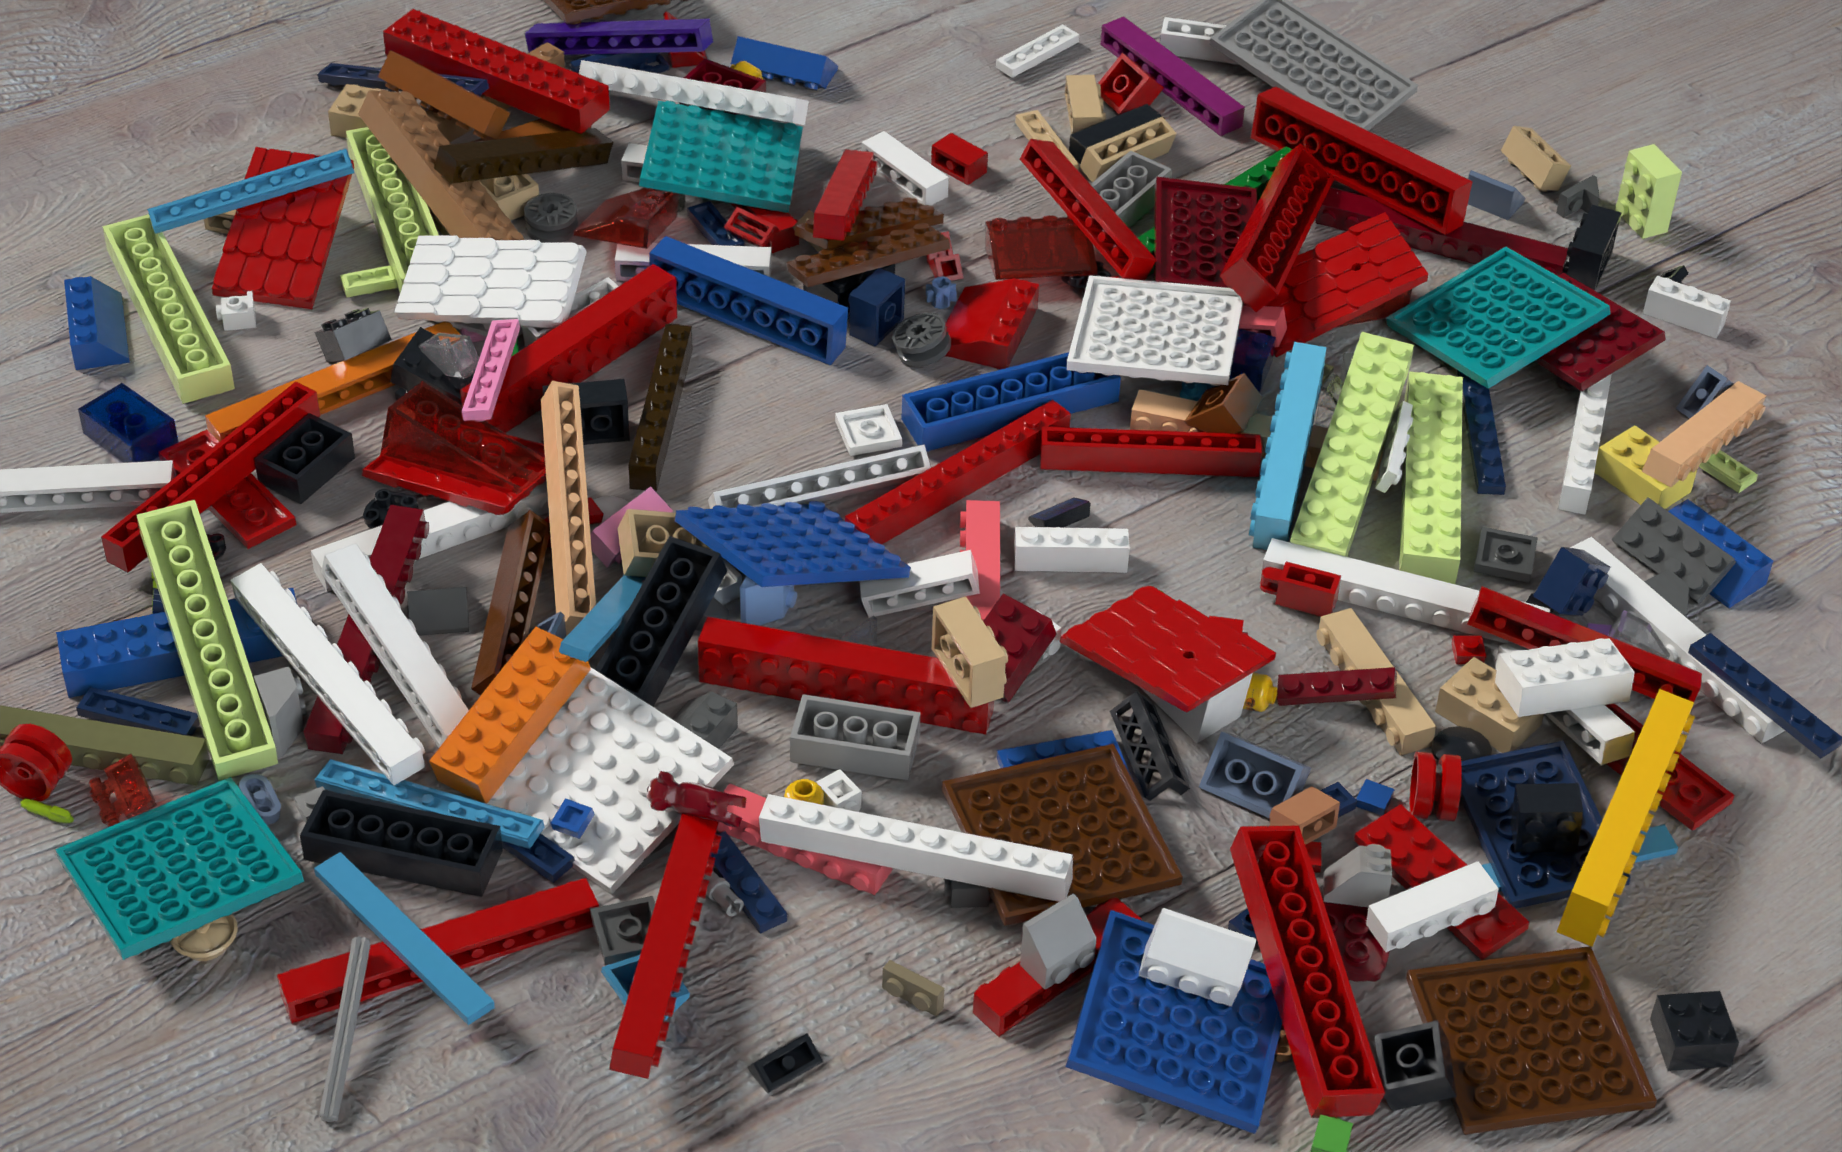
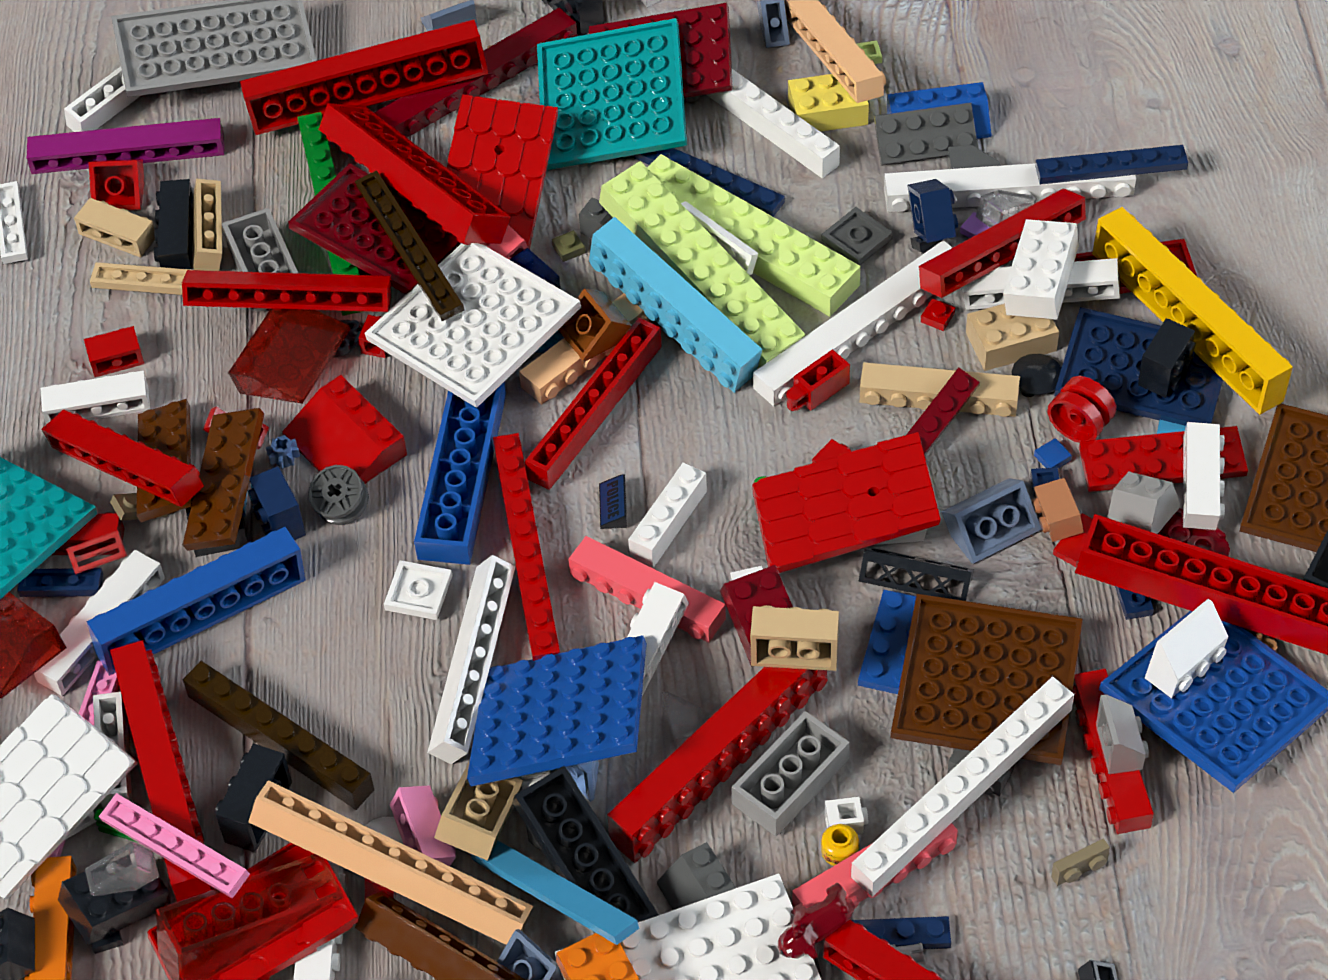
camera: 55 degrees left, 10 degrees up
(1194, 254) = (409, 246): none -> dark brown plate

